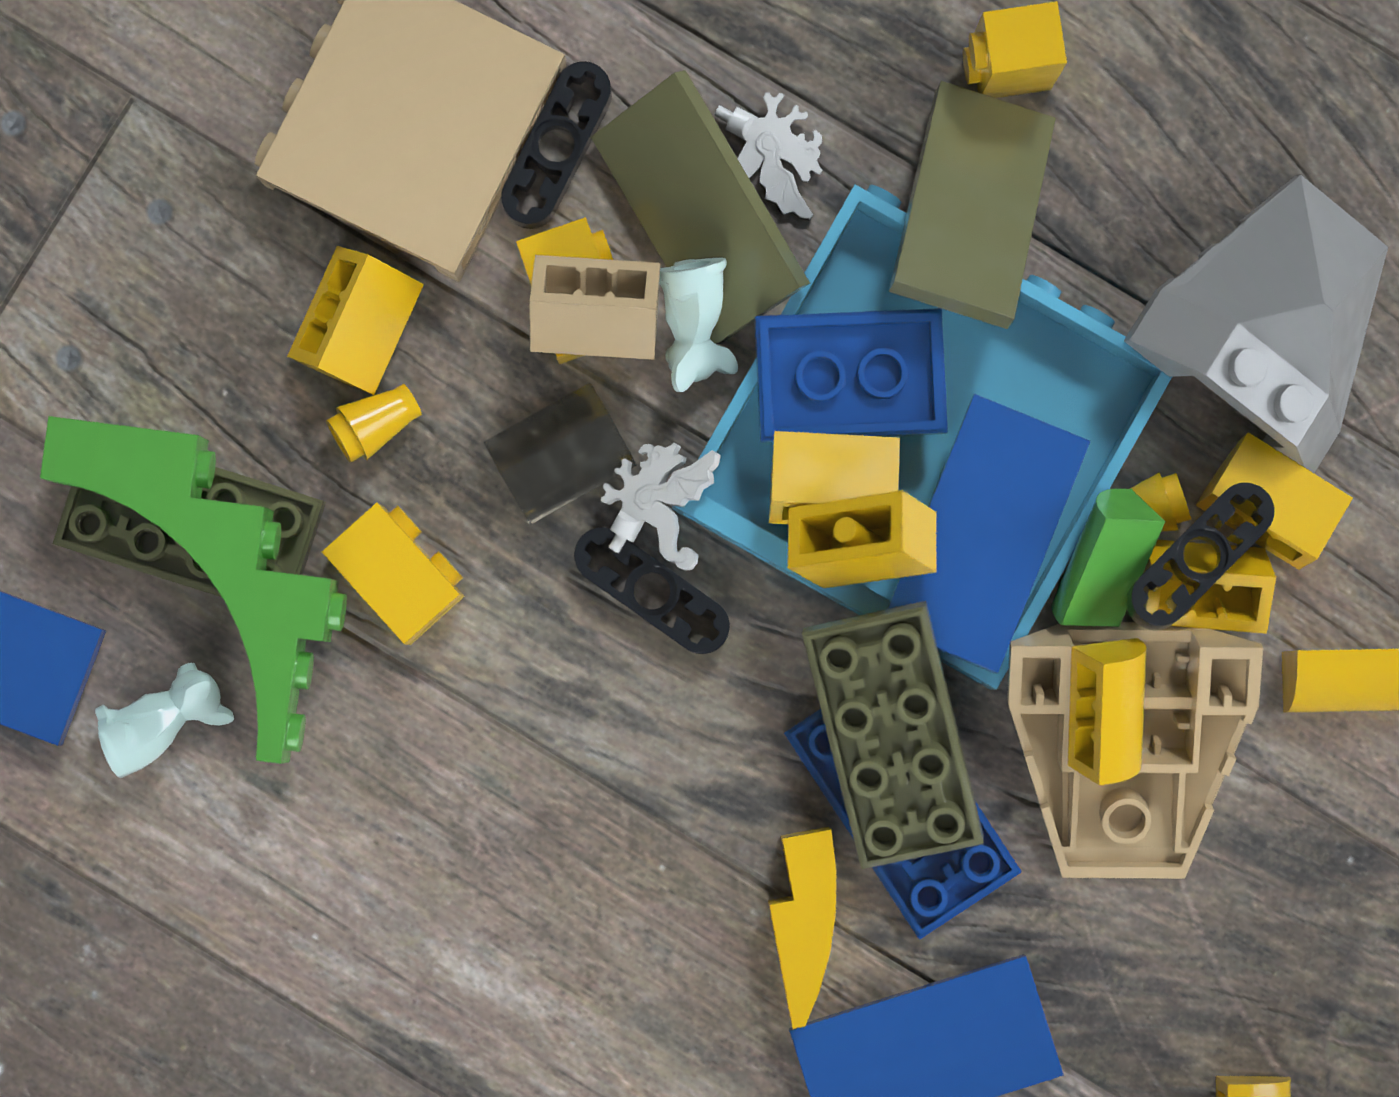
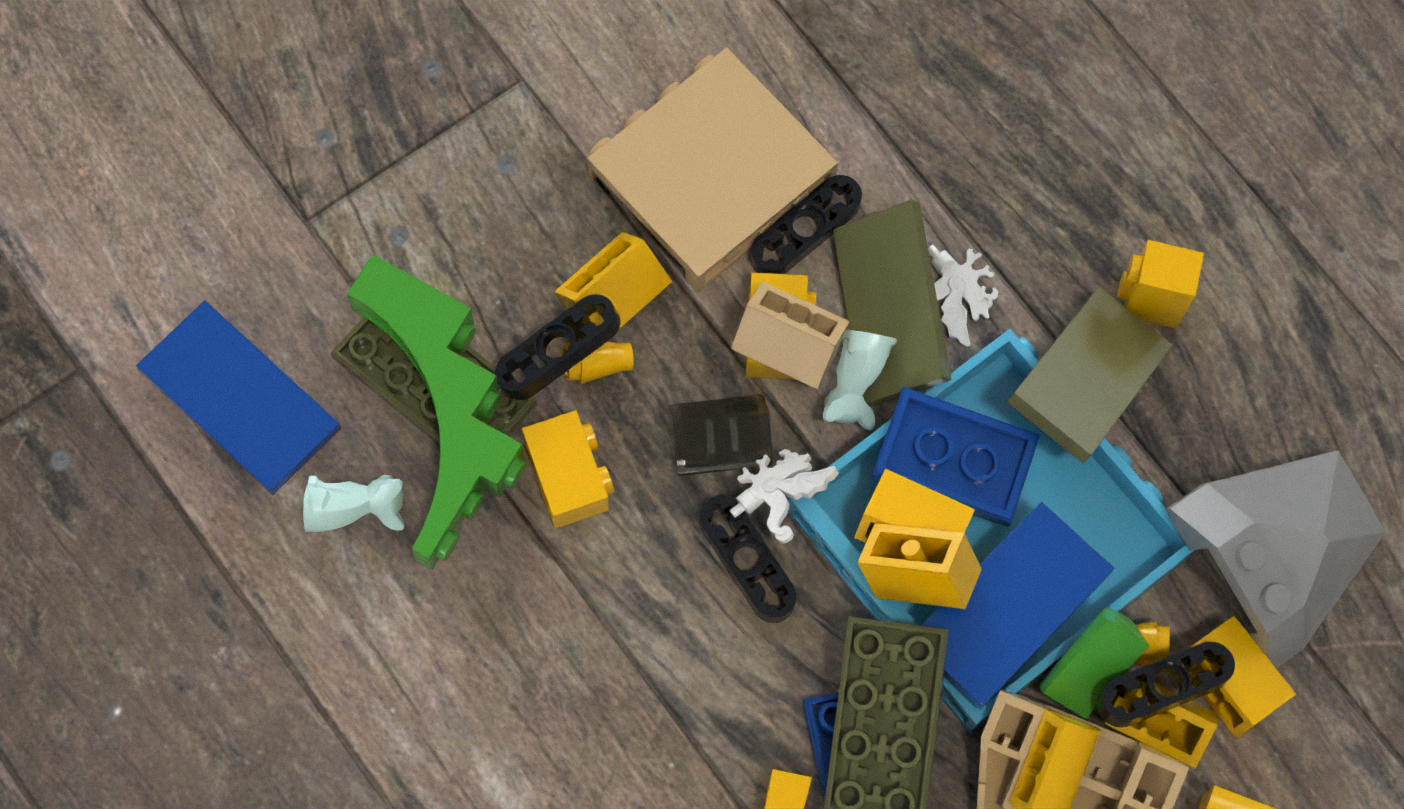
camera: 20 degrees right, 15 degrees down
(296, 439) = (537, 344): none -> black beam

